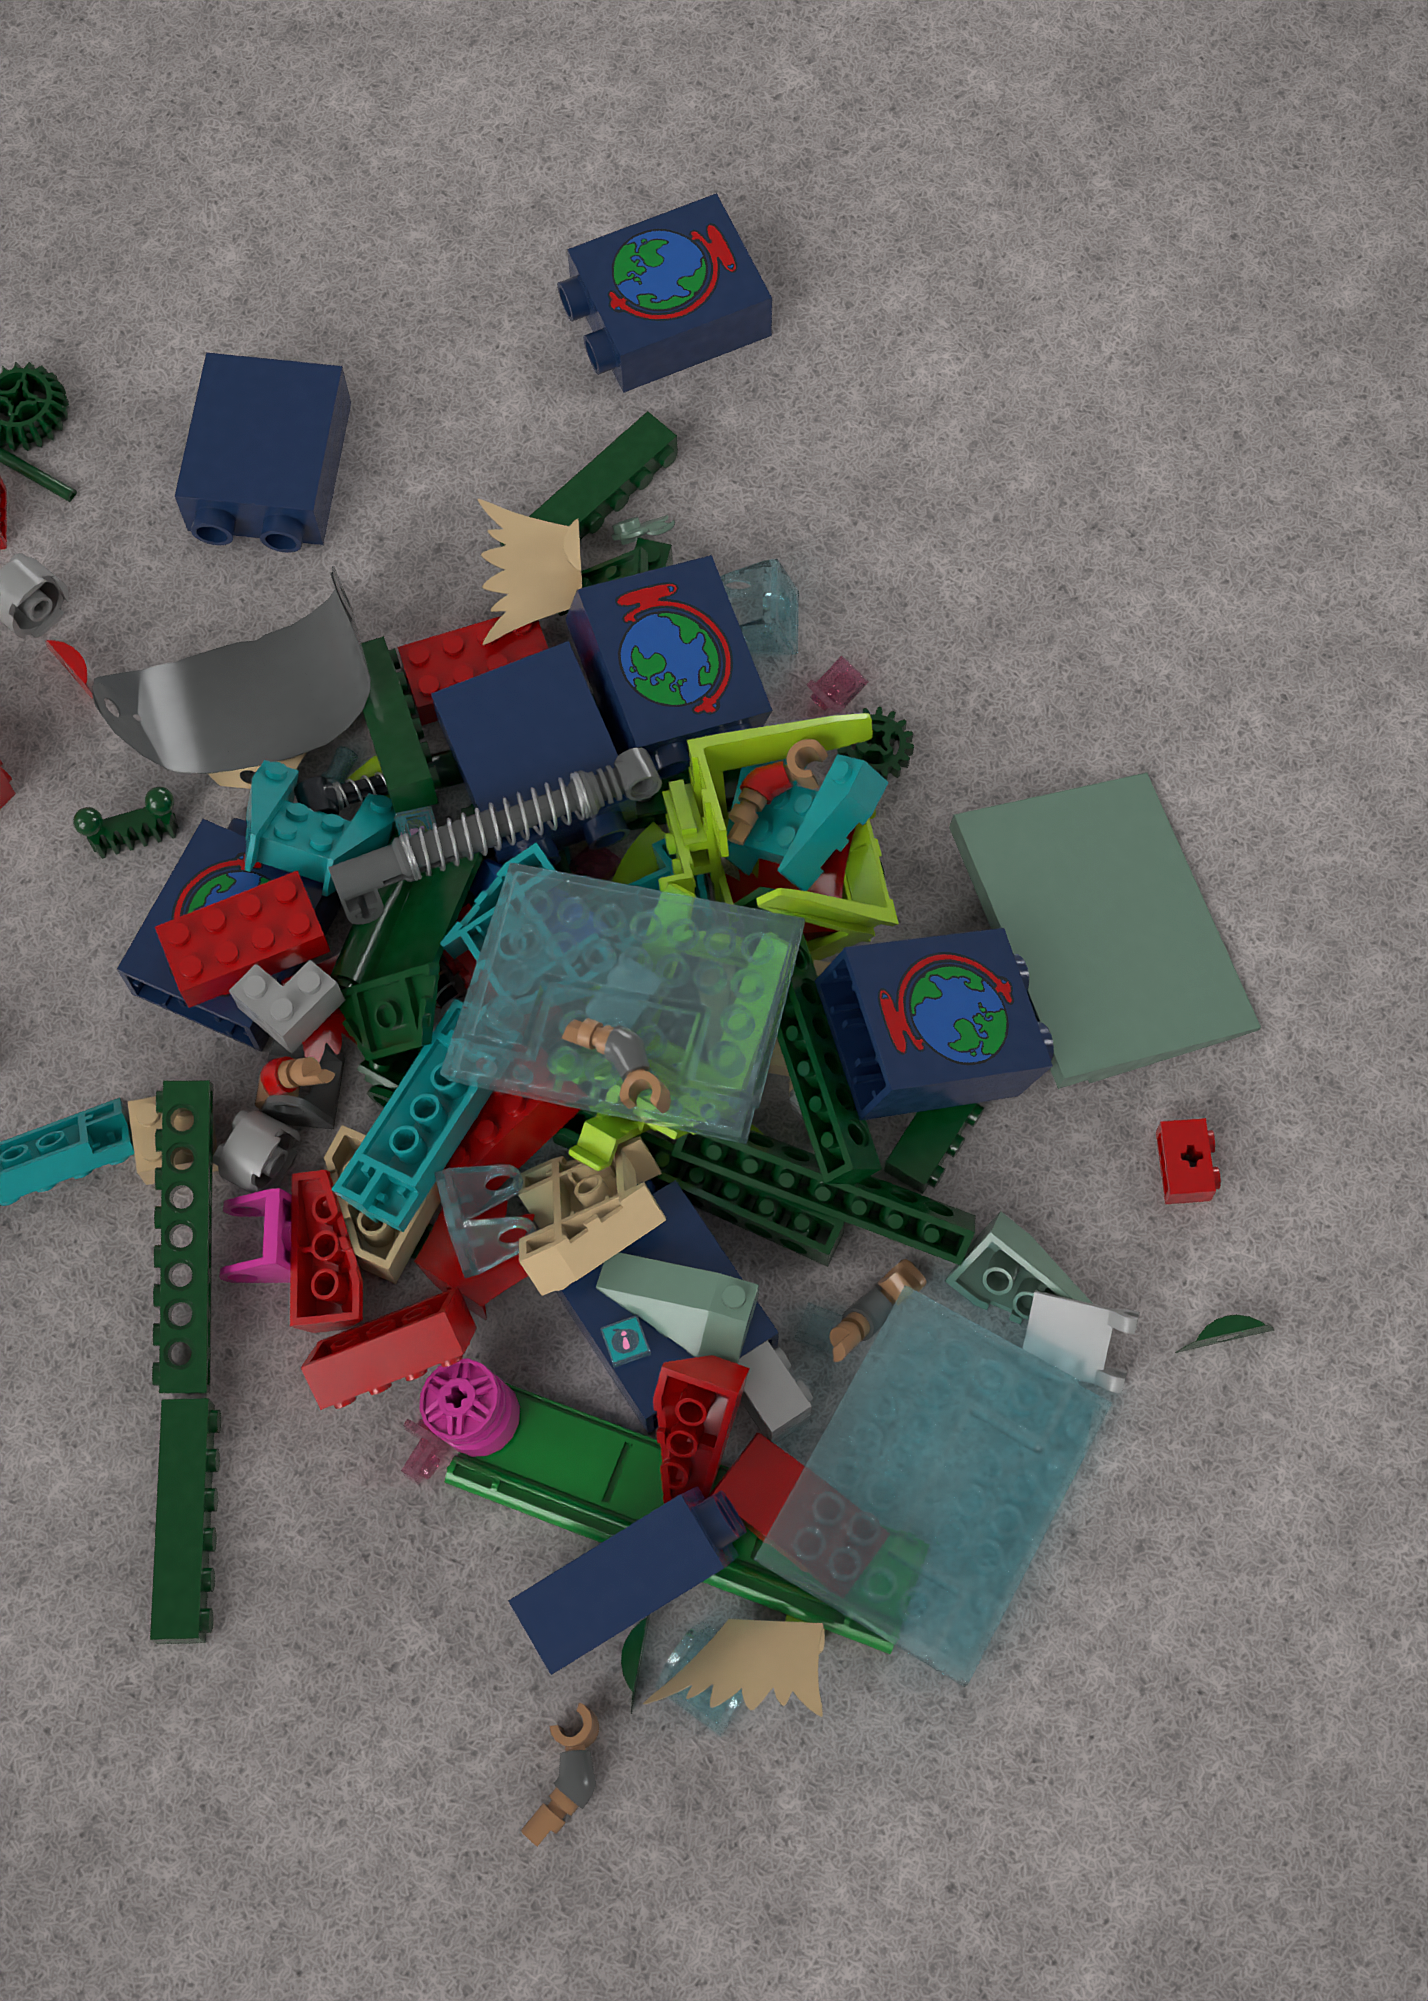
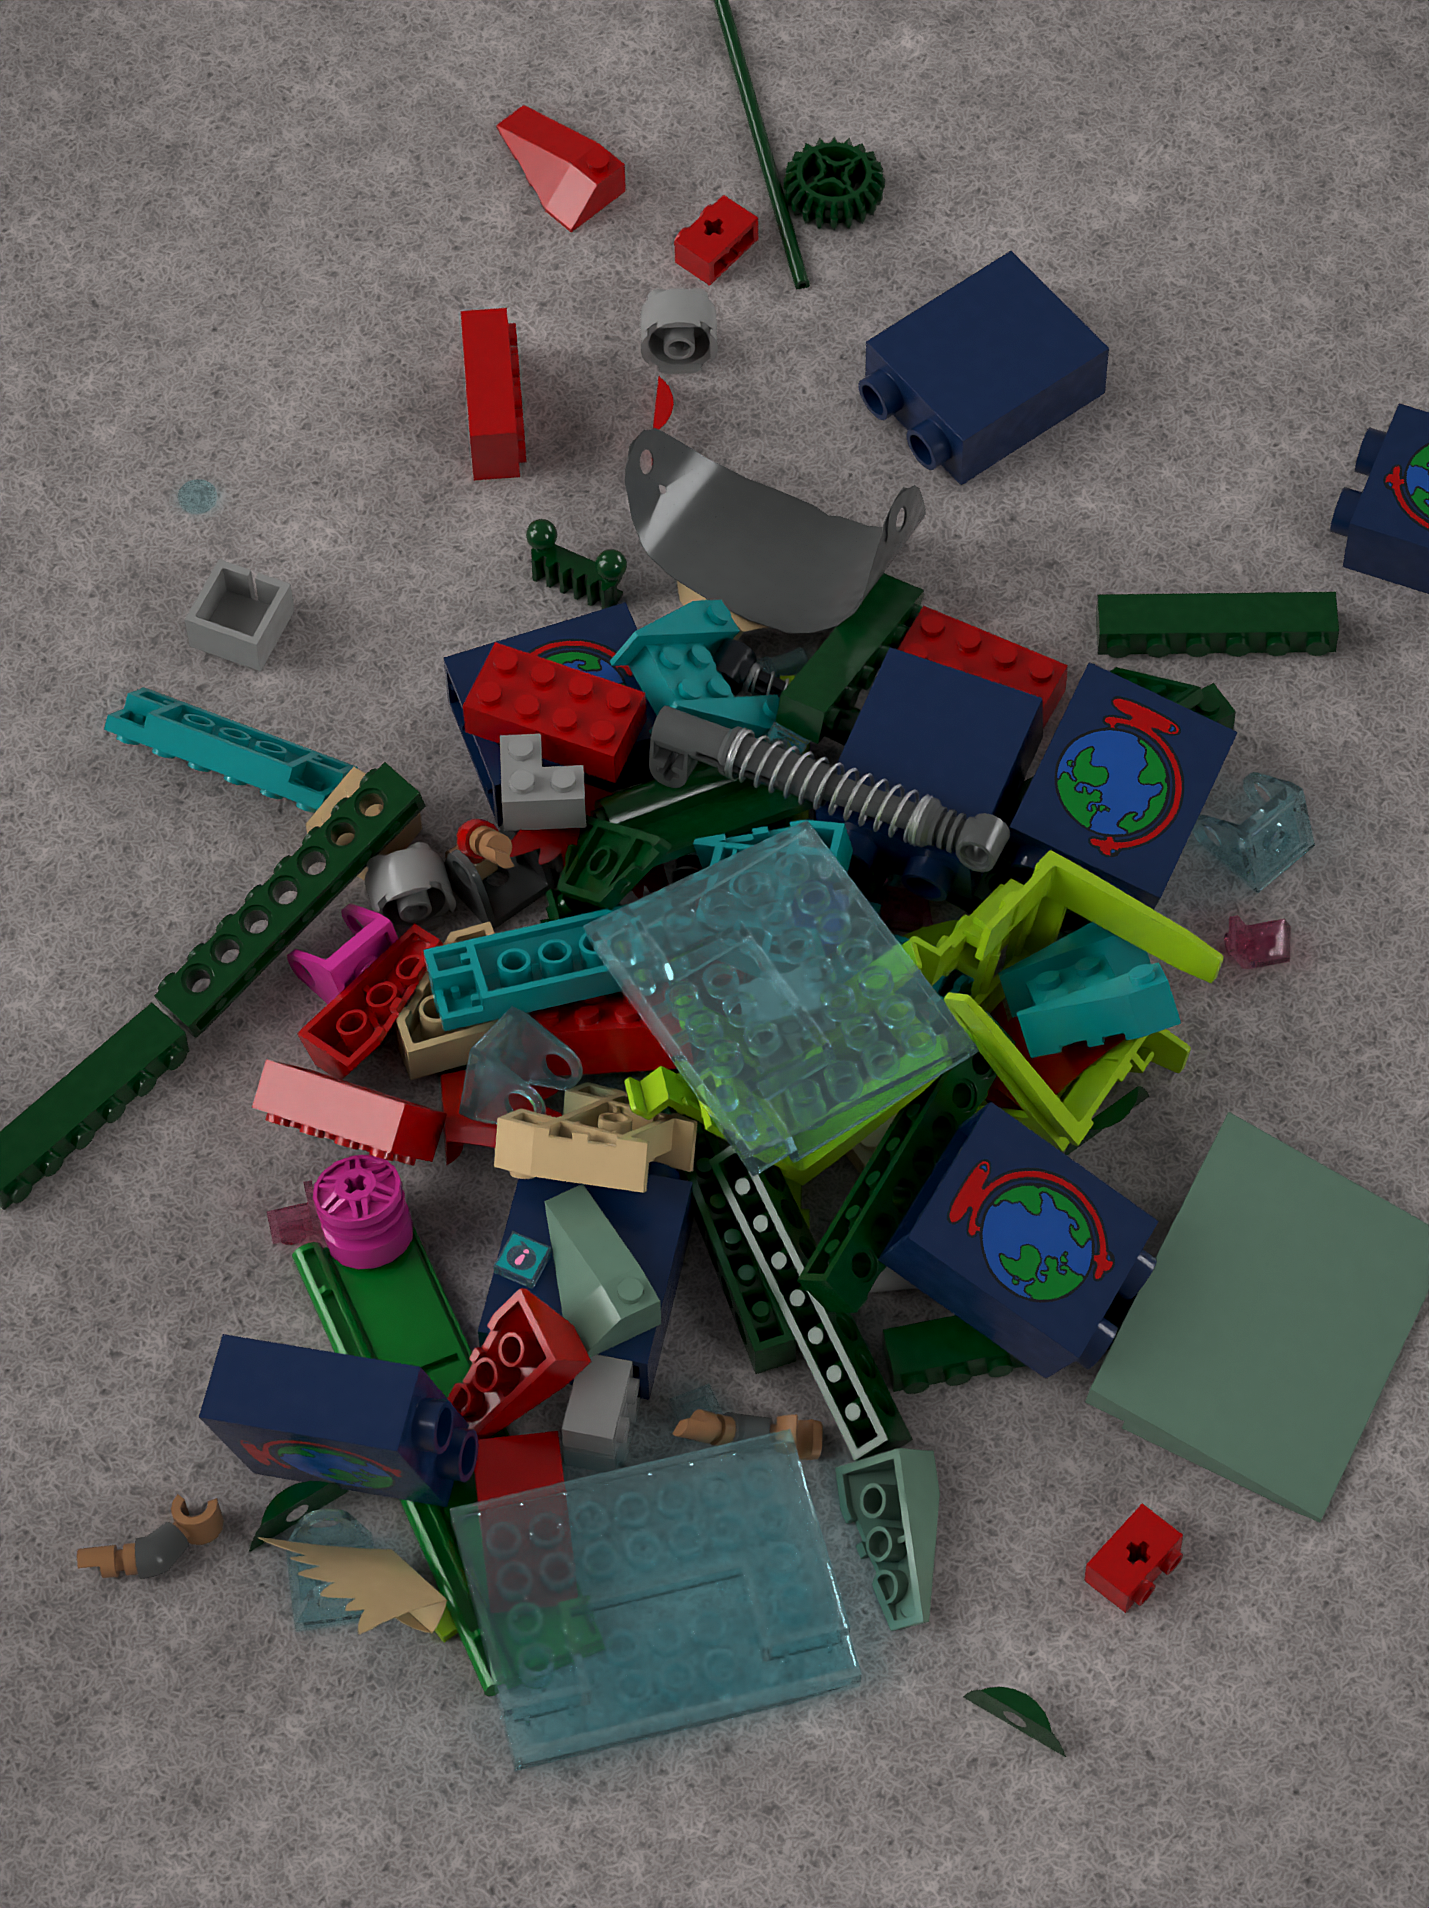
camera: 45 degrees right, 10 degrees down
(538, 566) = (1111, 632): tan piece -> none
(627, 1054) = (727, 1026): medium nougat piece -> none
(631, 529) = (1225, 679): sand green plate -> none
(770, 781) = (1089, 944): medium nougat piece -> none
(884, 732) = (1259, 1012): dark green gear -> none
(1077, 1337) = (887, 1600): light grey flag -> none

